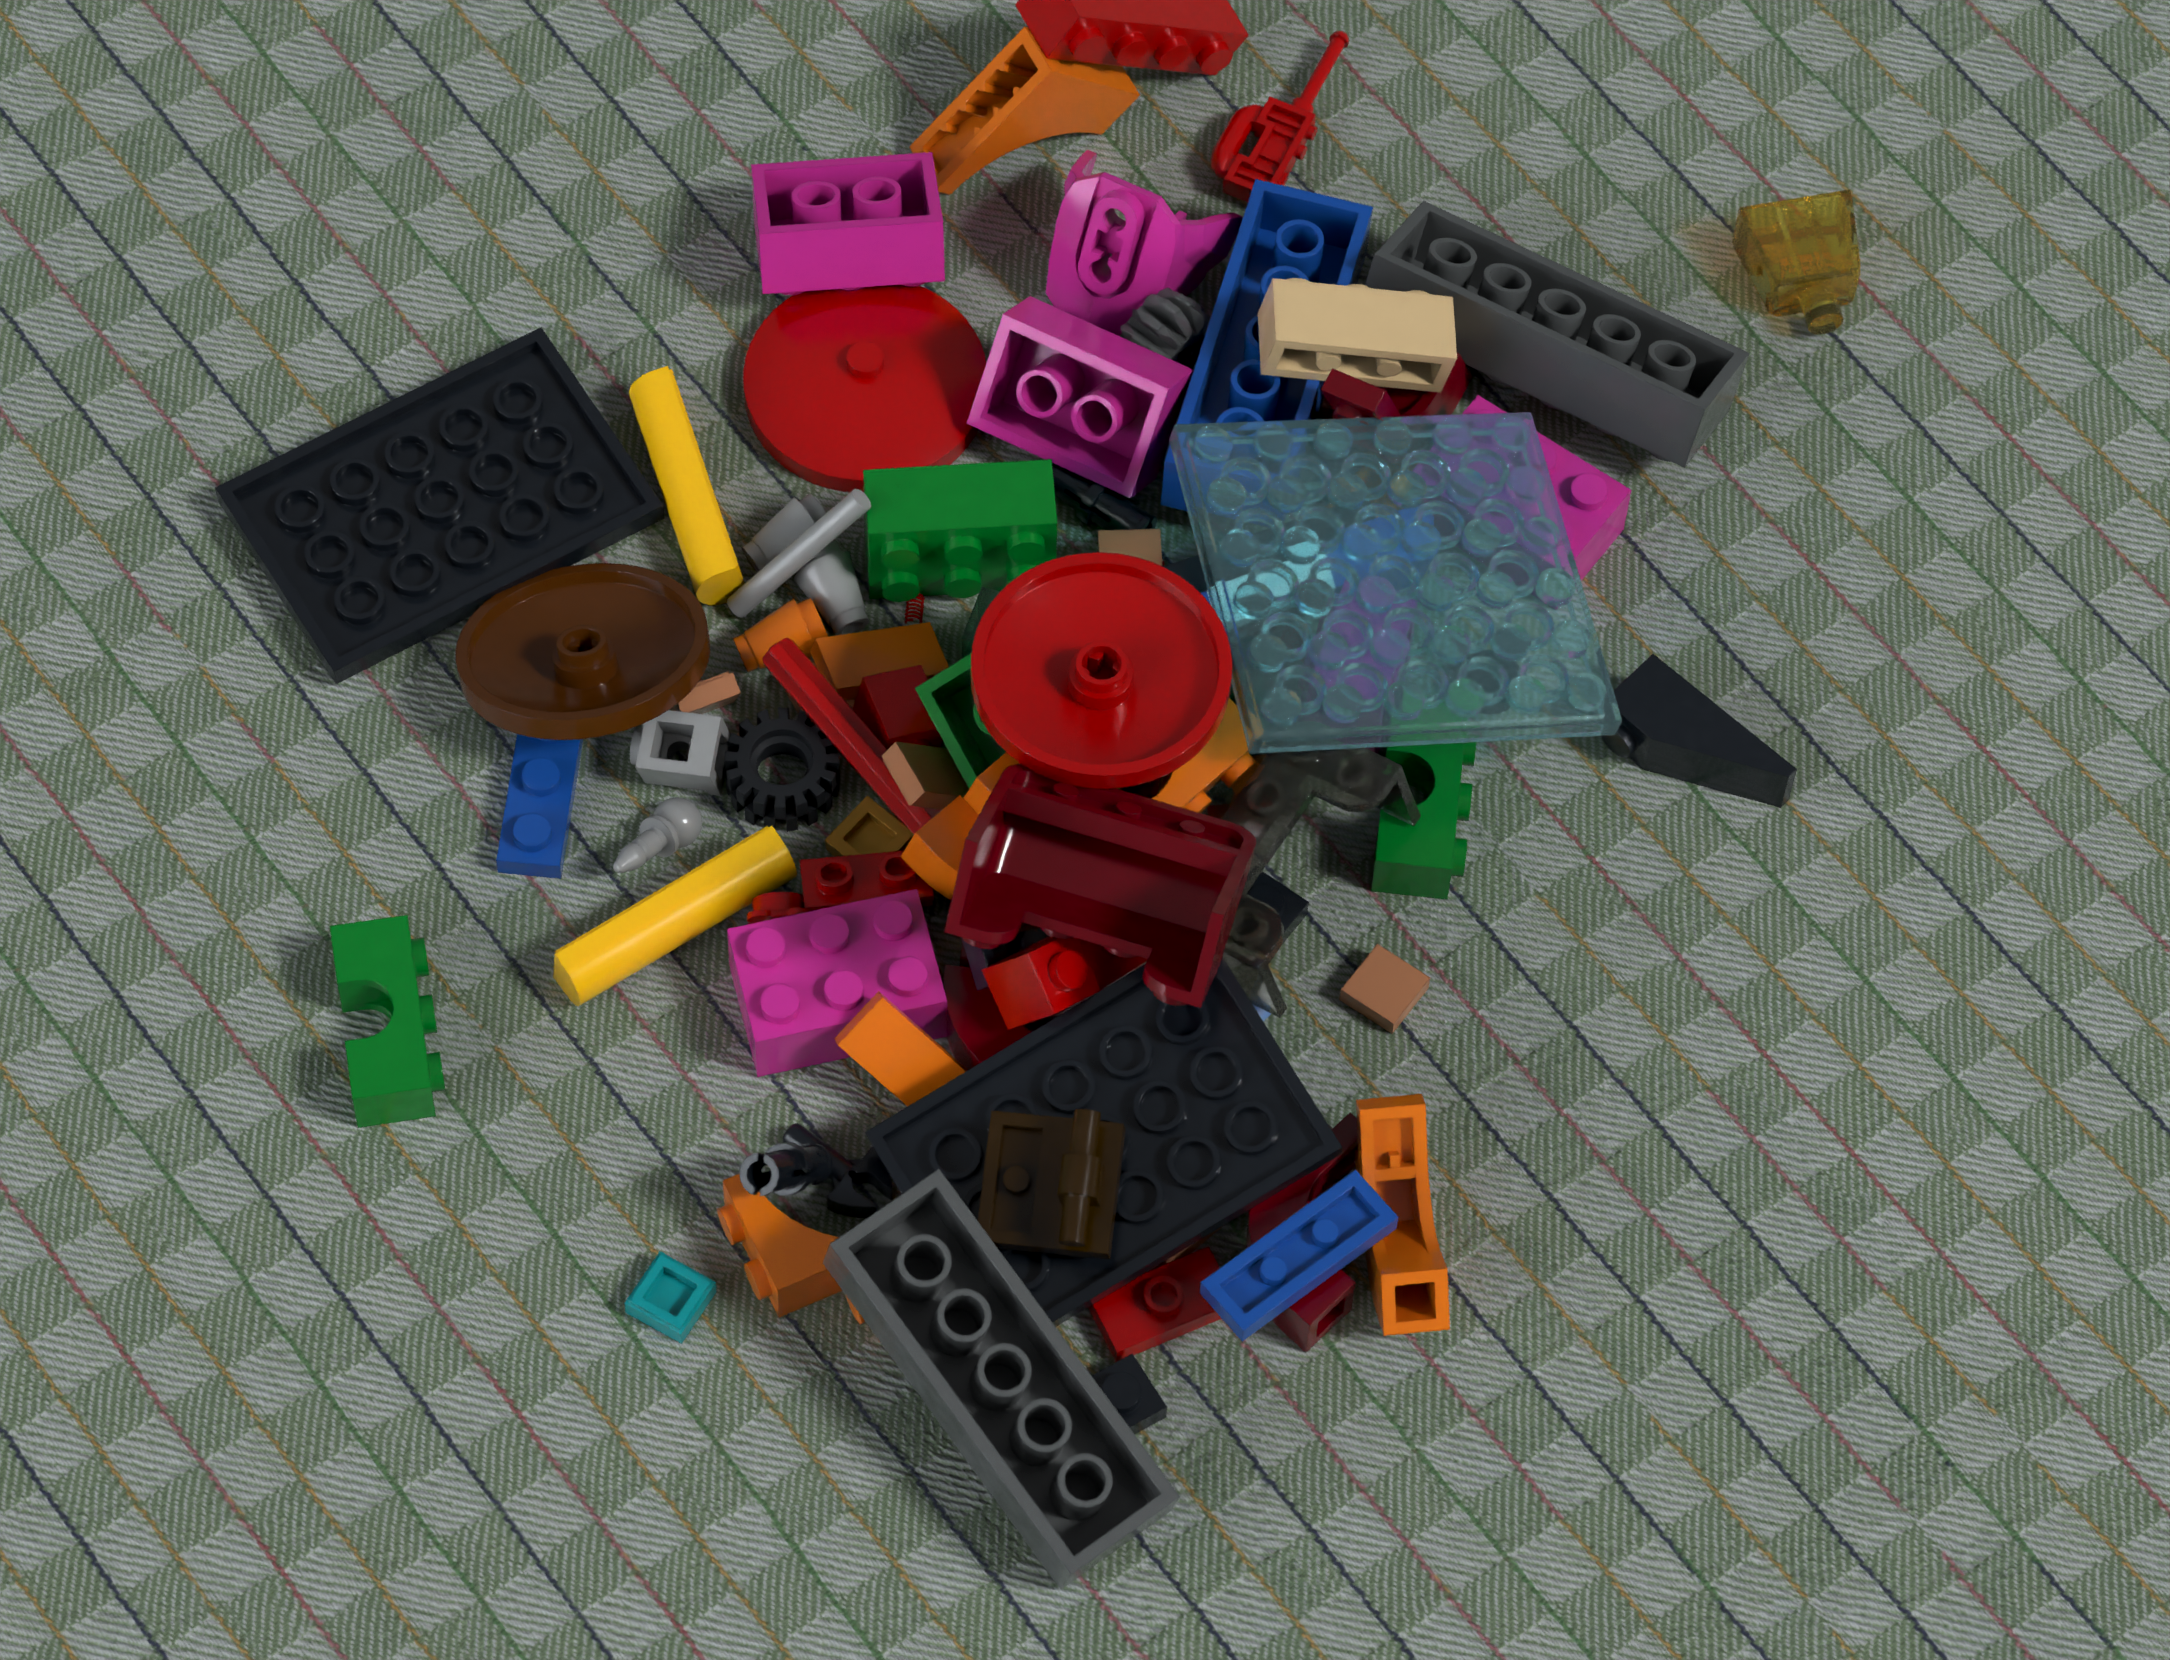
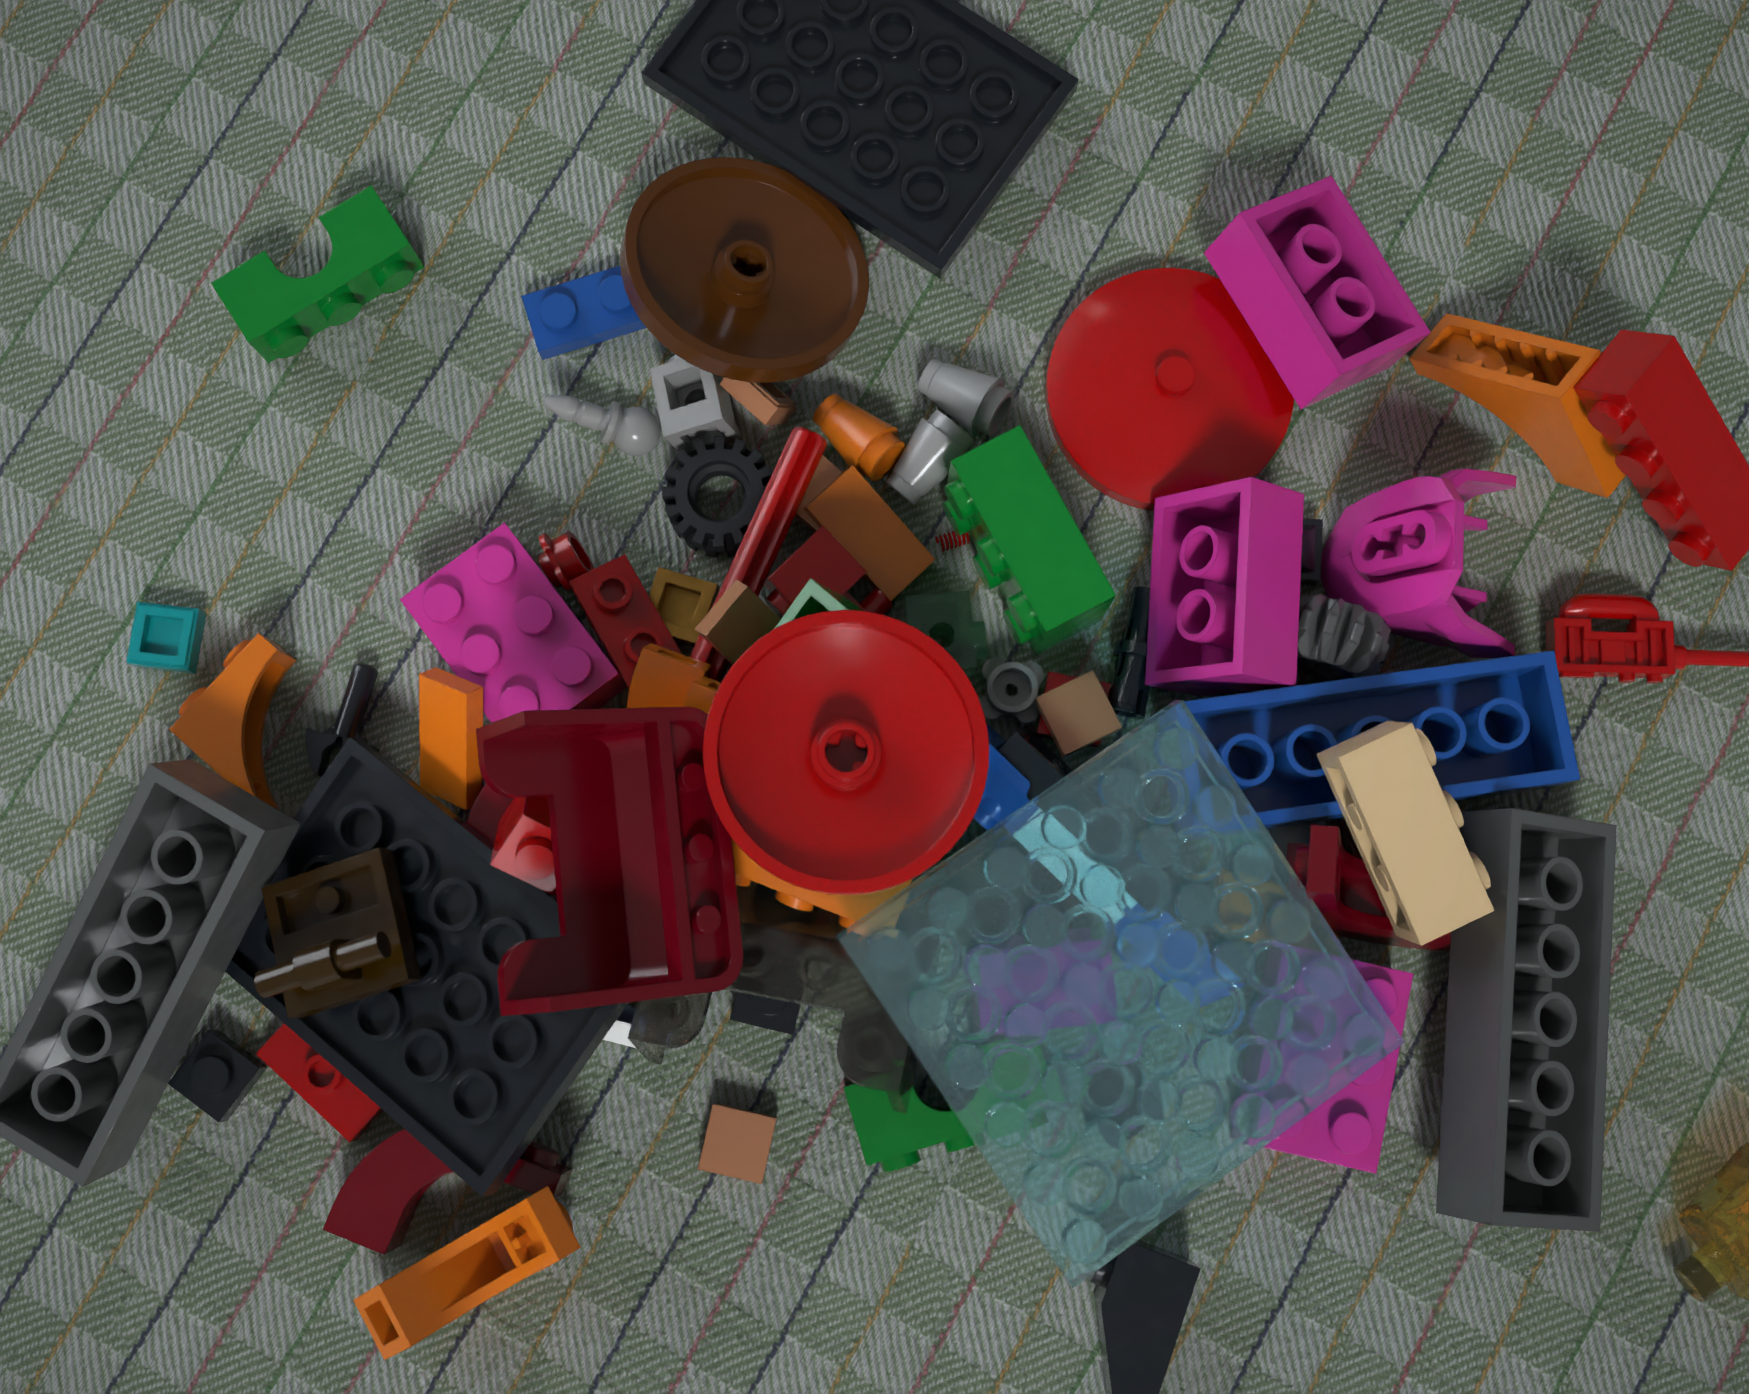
camera: 70 degrees right, 20 degrees up
(673, 915) = (525, 472): yellow brick -> none
(685, 486) = (976, 284): yellow brick -> none
(786, 1169) = (286, 683): black pin -> none
(799, 553) = (930, 410): light grey bar -> none
(1298, 1255) = (371, 1195): blue plate -> none

